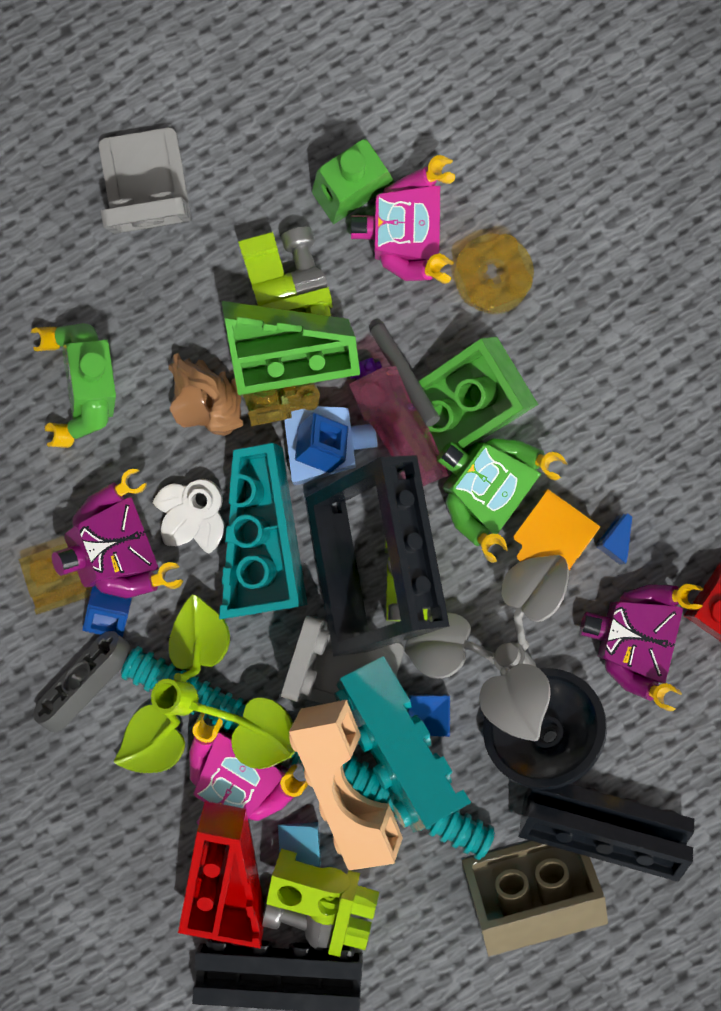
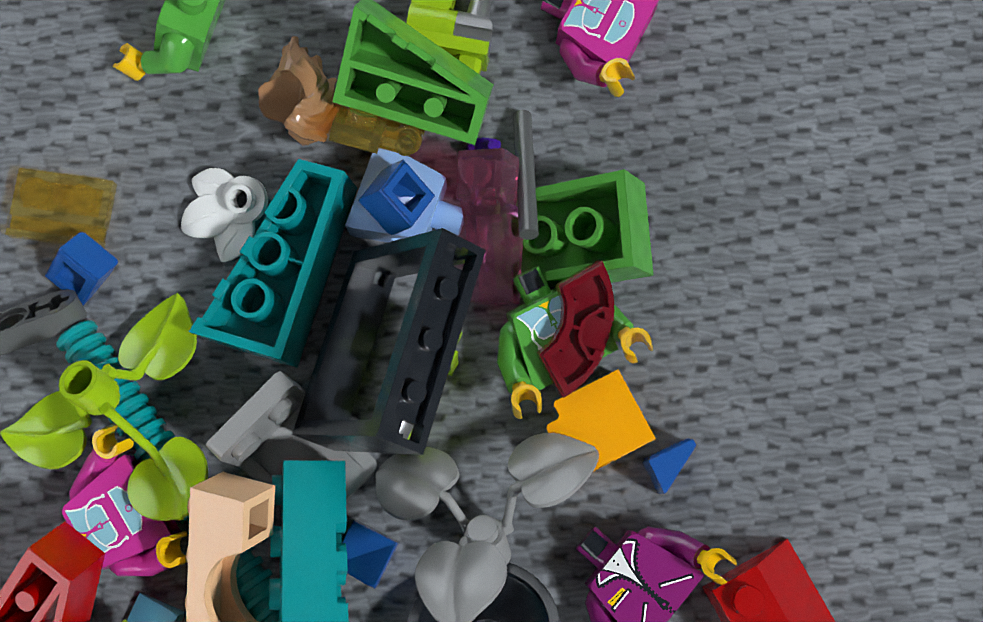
camera: 20 degrees right, 5 degrees down
(111, 545) = (119, 198): magenta torso -> none
(483, 293) = (653, 133): clear yellow plate -> none
(508, 473) = (582, 330): none -> dark red tile

